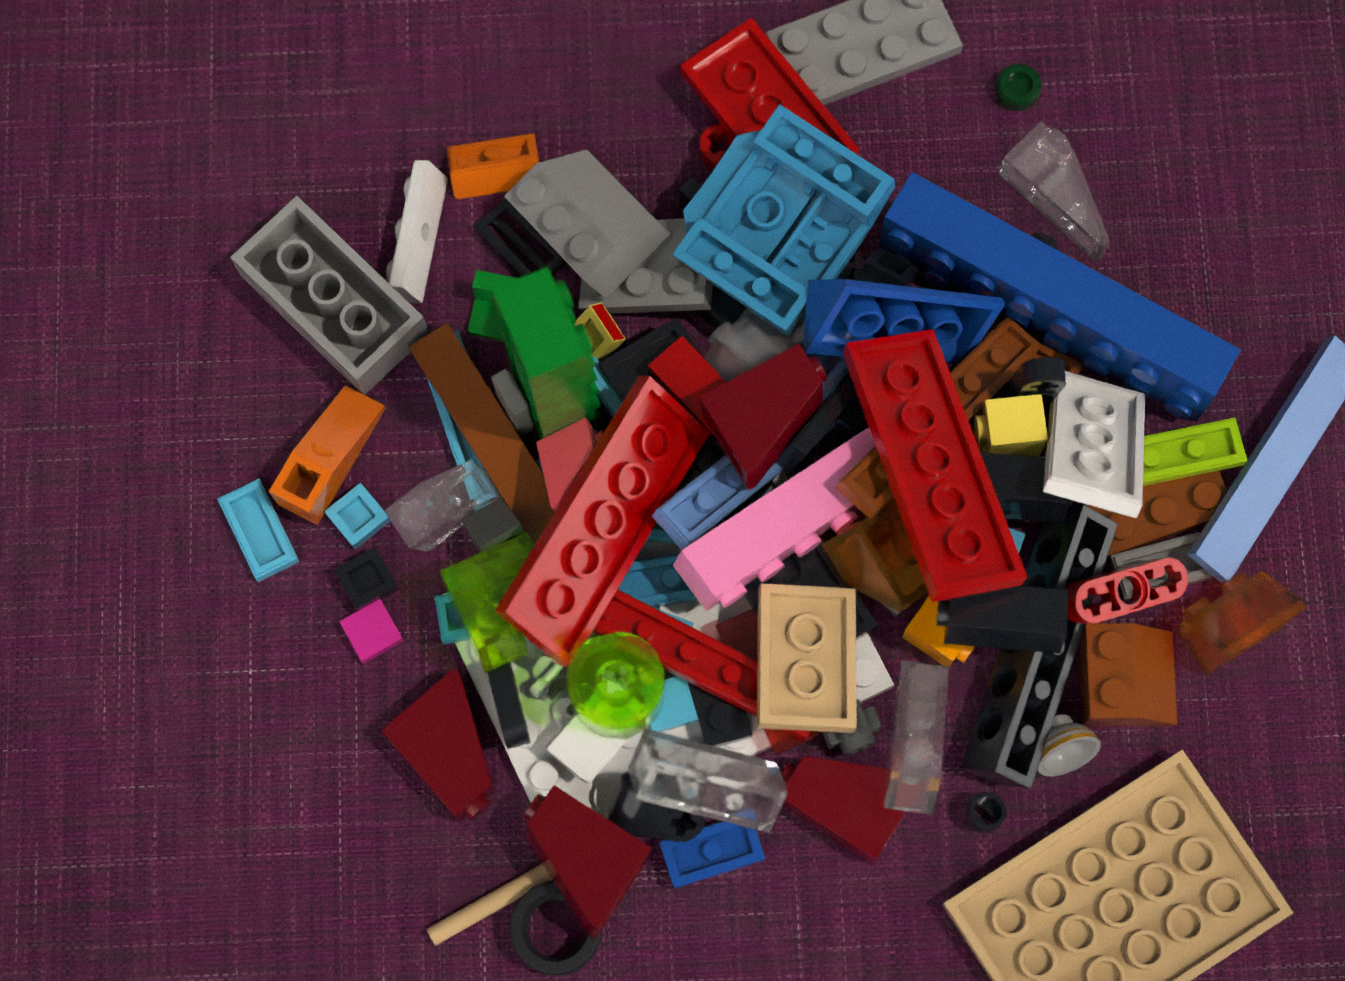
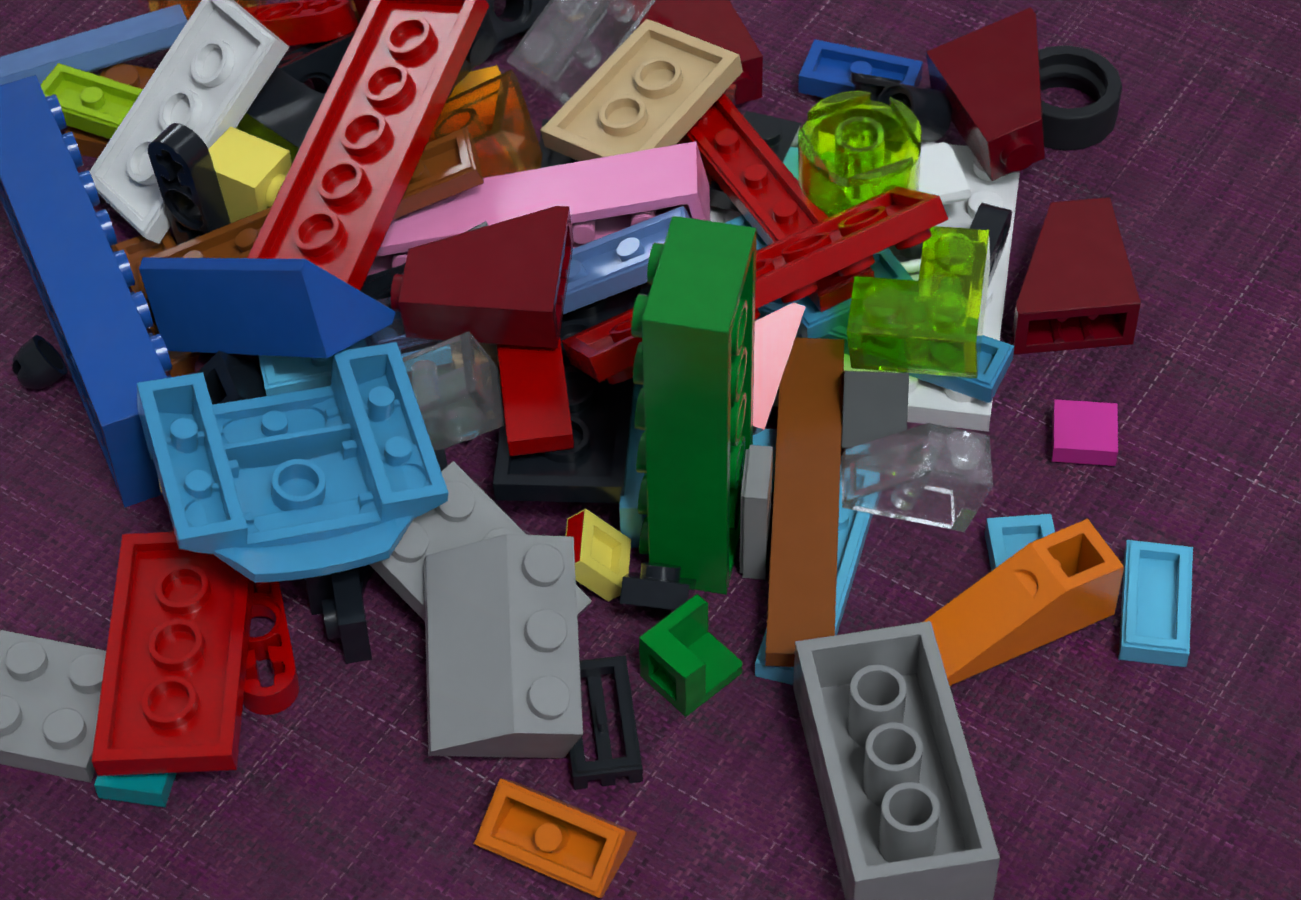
camera: 145 degrees left, 25 degrees down
(366, 578) = (1057, 473): black plate -> none
(417, 231) = (723, 798): white tile -> none
(488, 904) = (1122, 155): tan bar -> none
(707, 780) = (796, 73): clear brick -> none

